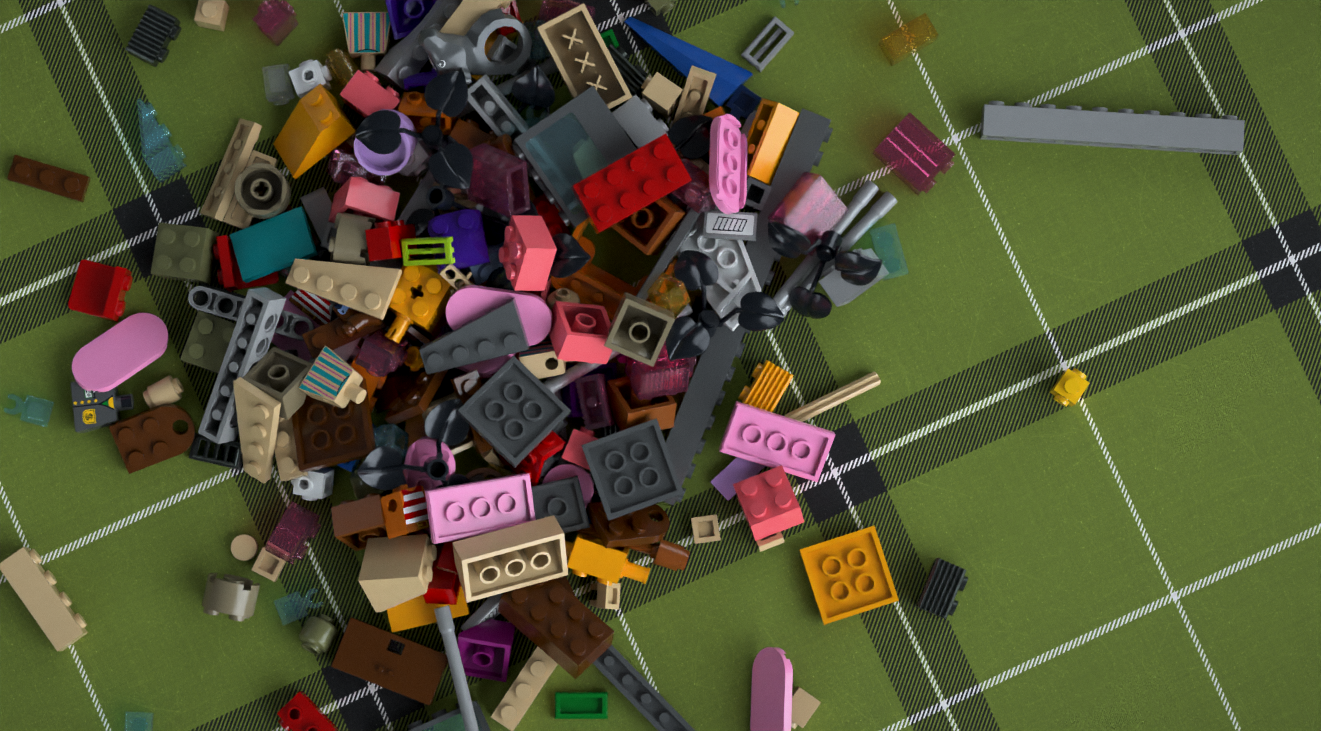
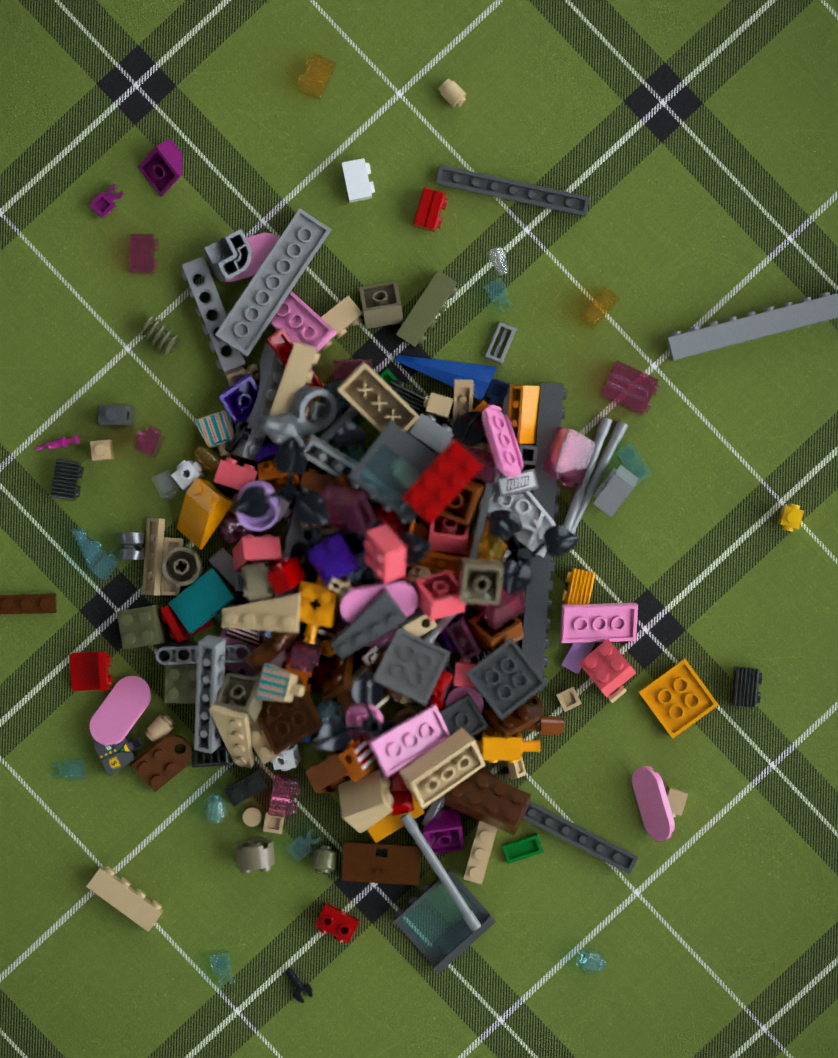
camera: 20 degrees left, 5 degrees up
(199, 519) = (215, 808): none -> clear light blue head
(207, 146) = (131, 546): none -> flat silver wheel
(248, 505) = (246, 787): none -> pearl dark grey brick
(398, 45) = (242, 432): none -> black bar
(447, 249) = (328, 569): lime tile -> none
(619, 262) = (448, 535): none -> coral brick
(835, 398) = (628, 578): tan axle -> none
(853, 266) = (613, 487): black plant -> none

